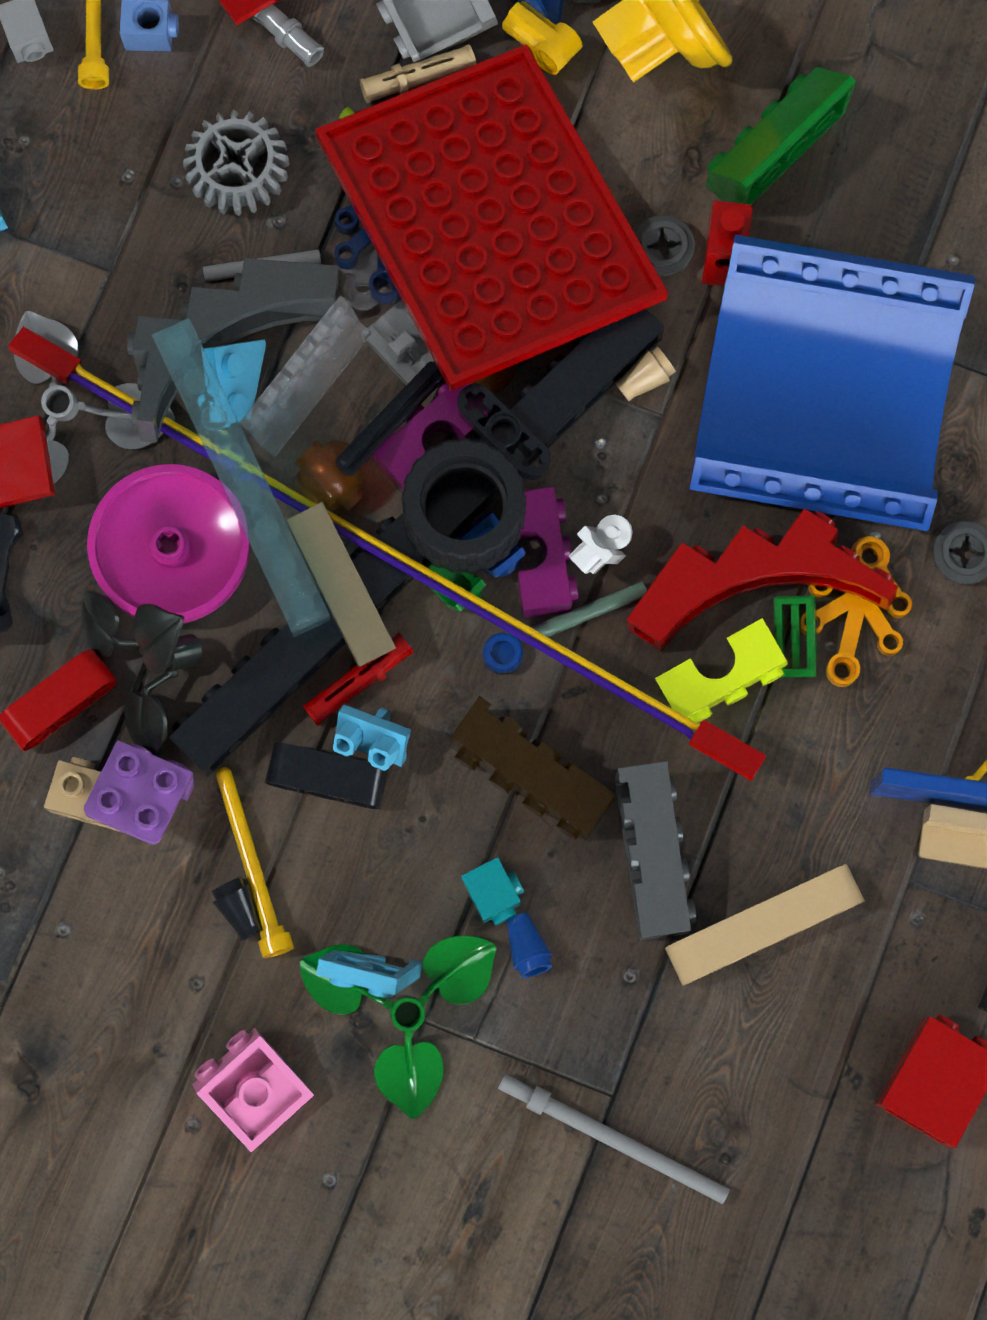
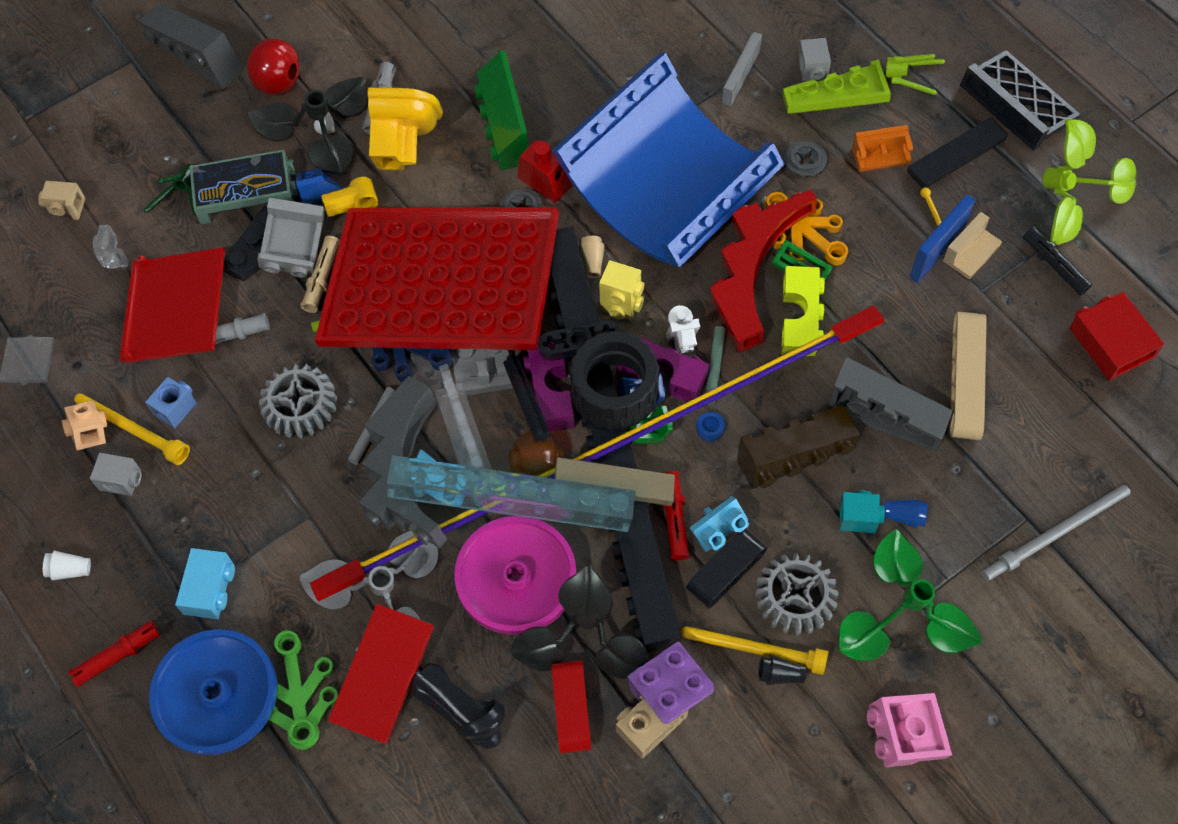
camera: 55 degrees left, 15 degrees down
(349, 854) = (809, 614): none -> light grey gear
(367, 971) = (885, 601): medium azure wing -> none
(606, 440) = (621, 291): none -> light yellow brick

